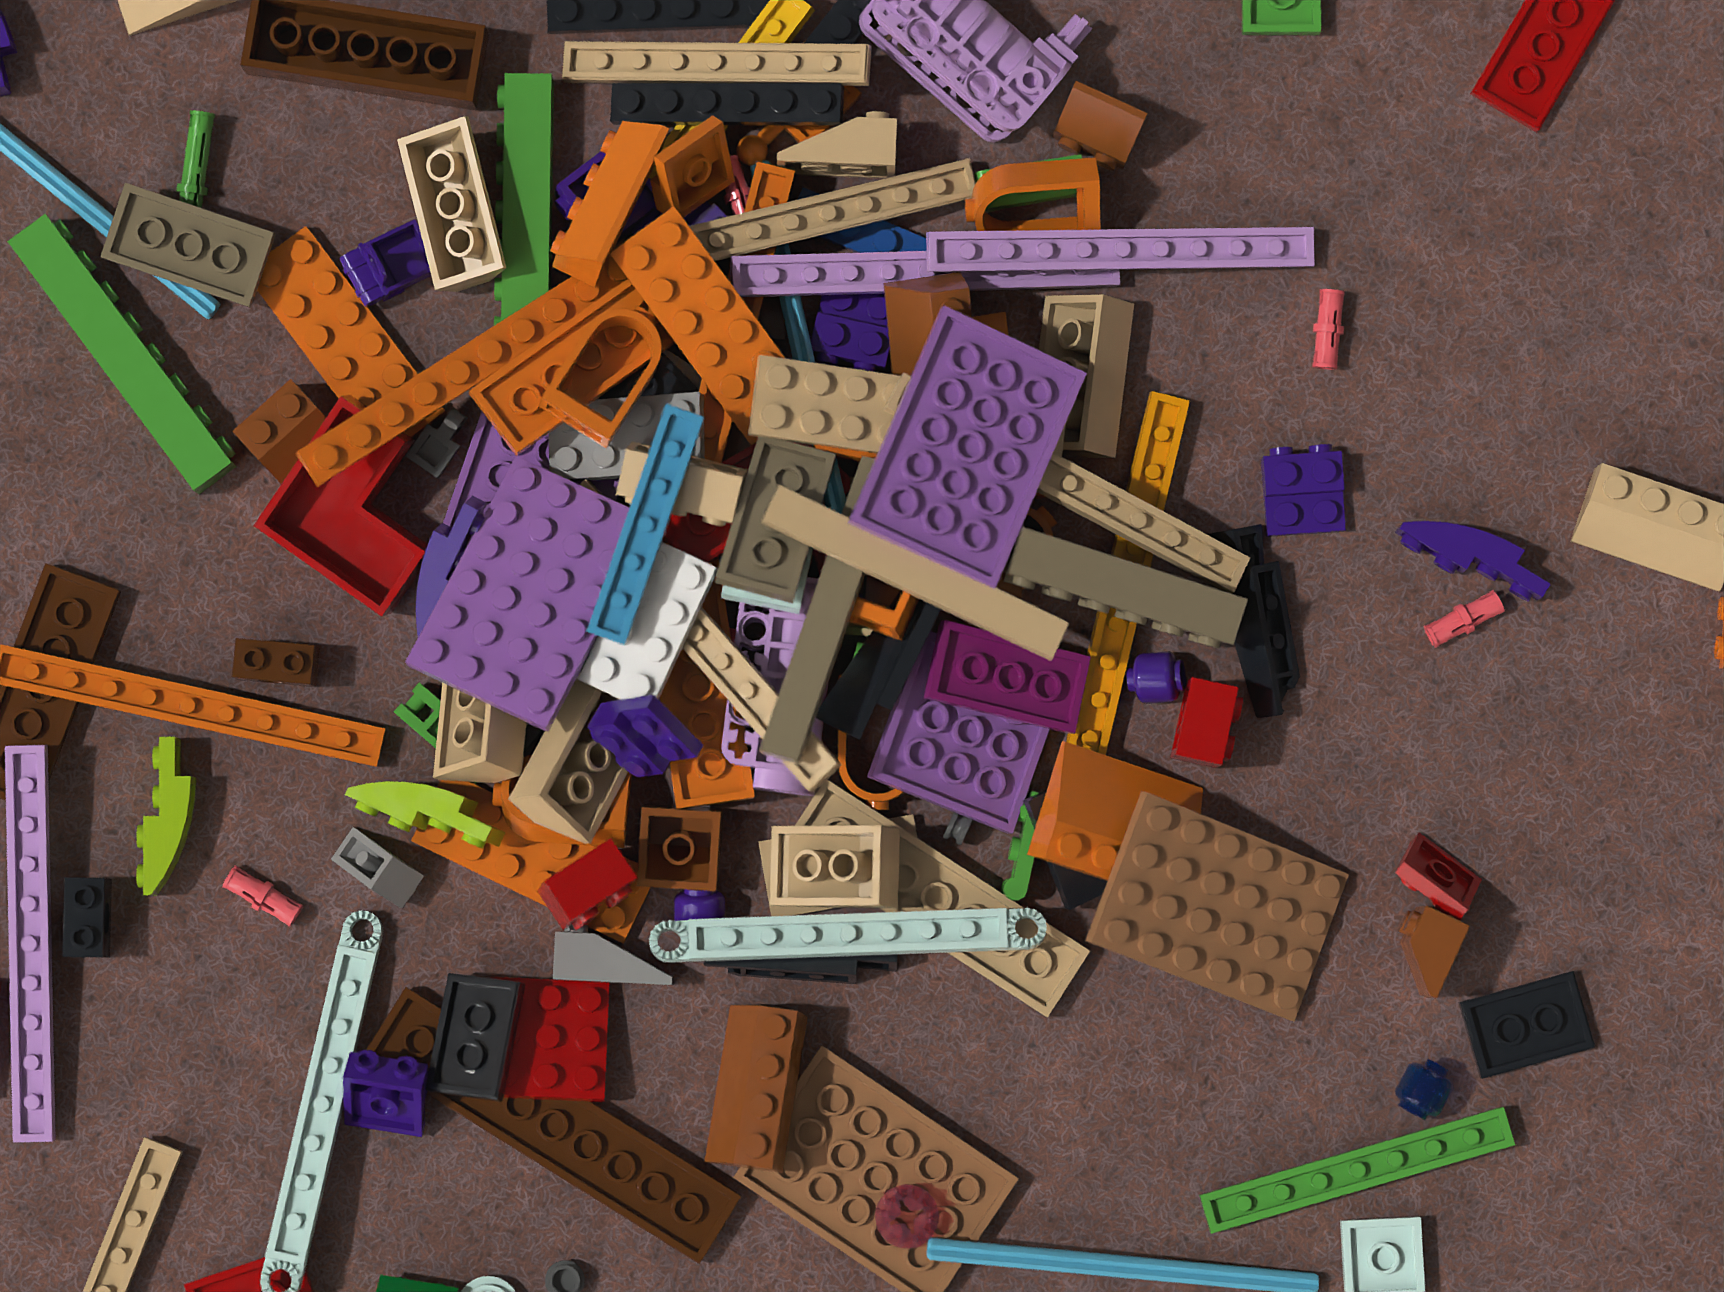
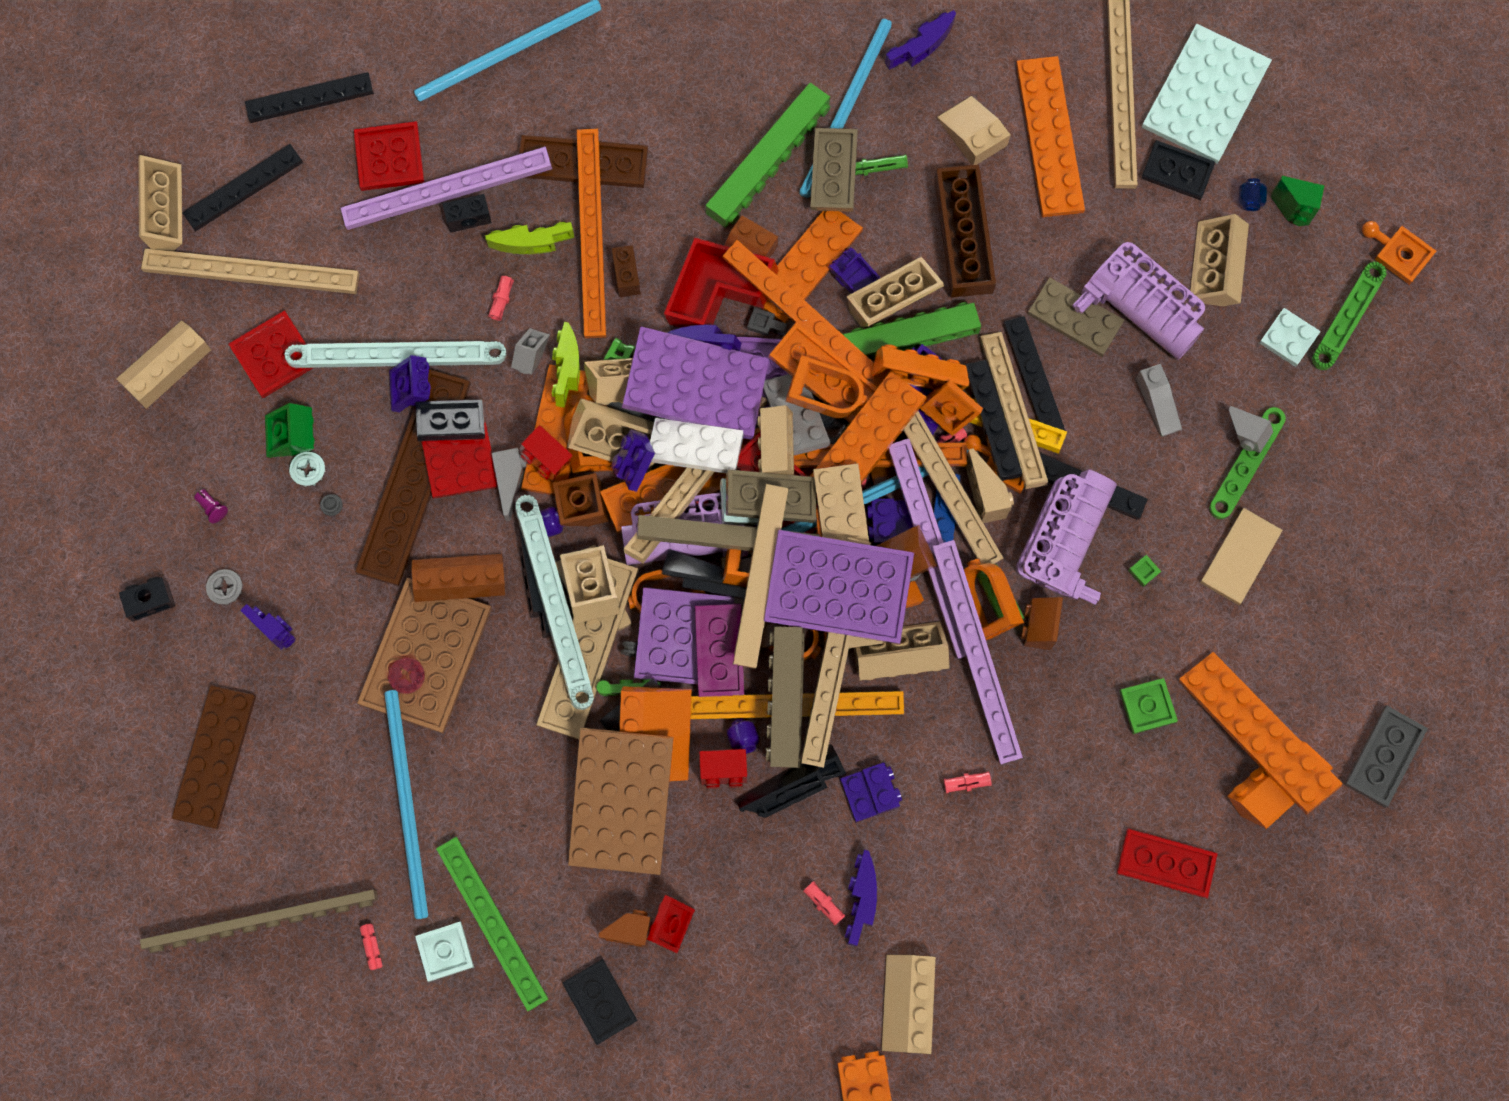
camera: 75 degrees right, 10 degrees down
(645, 524) = (747, 425): dark azure plate -> none
(1424, 1089) = (547, 949): clear blue head -> none

